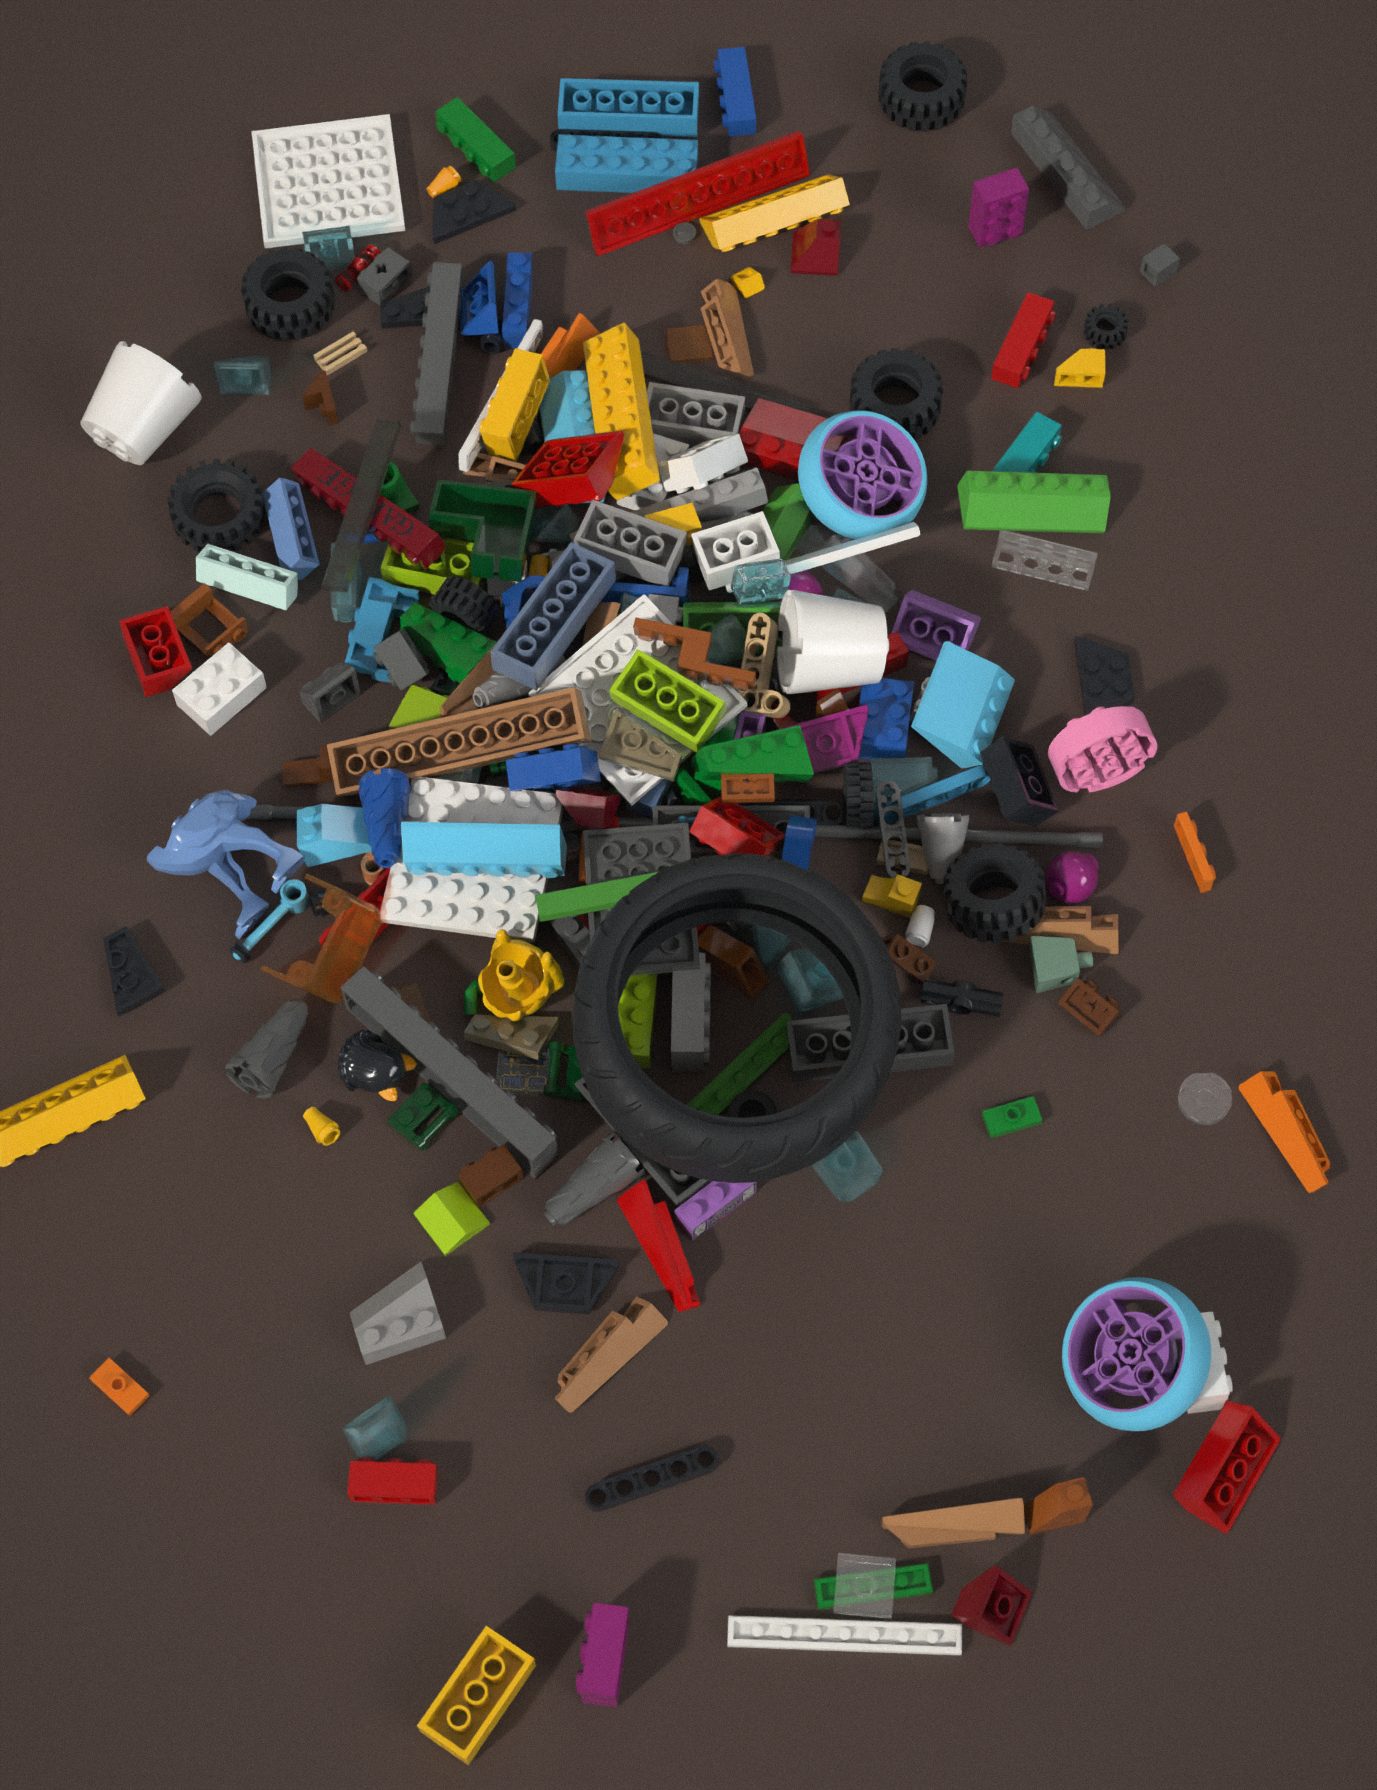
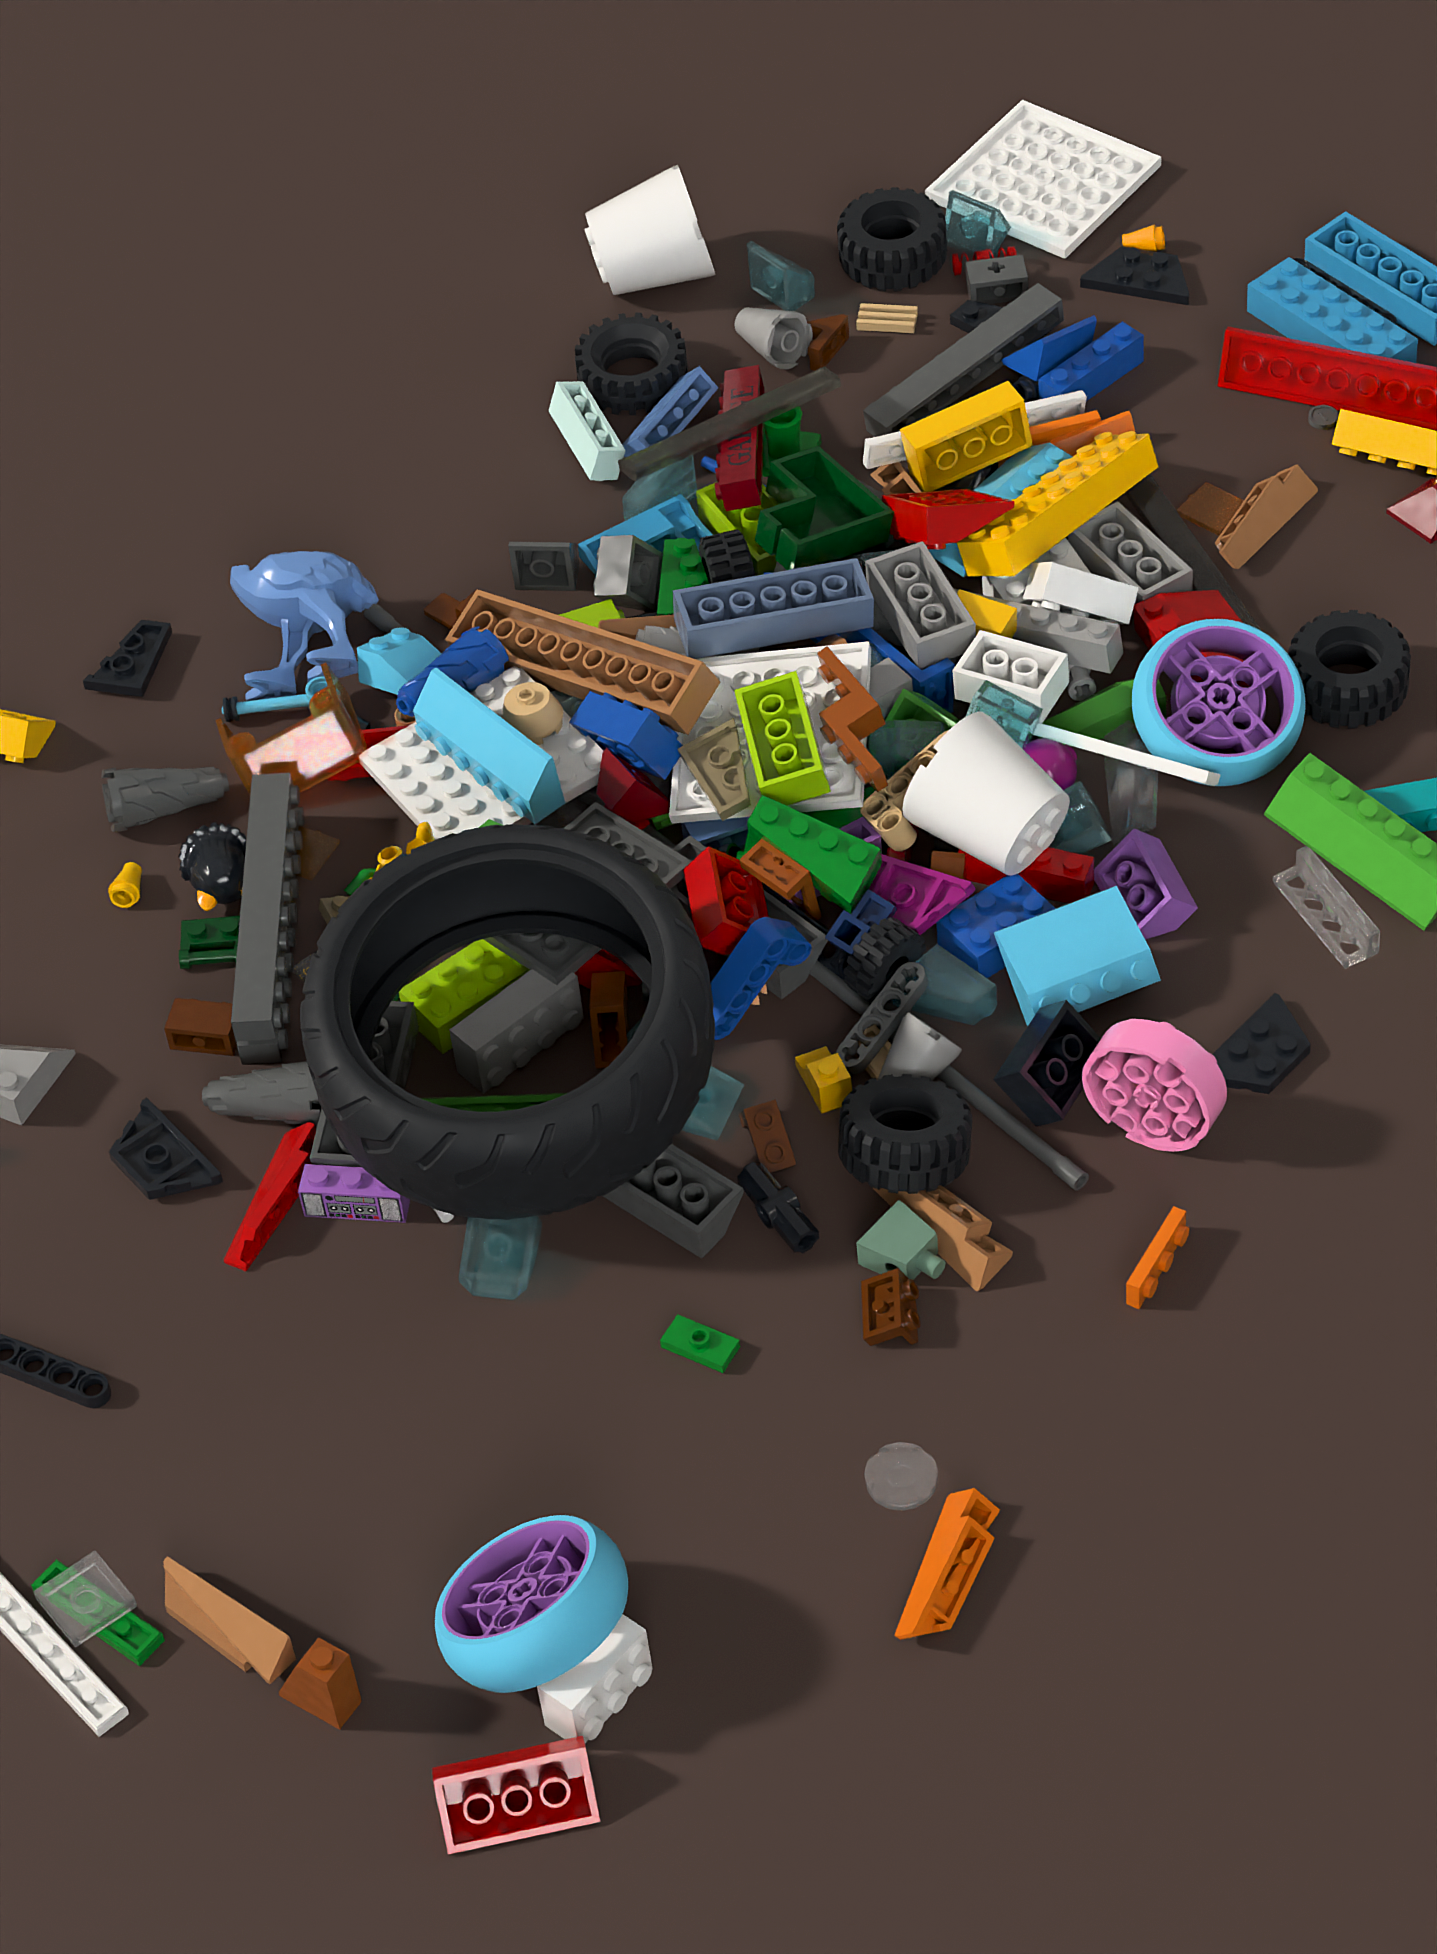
camera: 50 degrees right, 15 degrees down
(155, 650) = (440, 433): red slope -> none
(194, 605) = (514, 428): dark orange panel -> none
(219, 689) = (461, 501): white brick -> none
(286, 418) = (775, 334): none -> light grey cone
(451, 1217) = (137, 1037): lime slope -> none
(475, 140) = (1214, 223): green brick -> none
(479, 803) = (533, 711): none -> tan cone
(607, 1351) = (124, 1238): medium nougat wedge -> none
(748, 282) = (1332, 493): yellow slope -> none
(826, 785) = (850, 927): none -> dark blue brick
(920, 926) = (814, 1121): white piece -> none
(937, 793) = (979, 1022): dark azure beam -> none
(993, 1605) = (170, 1715): dark red slope -> none
(1072, 876) = (1006, 1185): magenta brick -> none

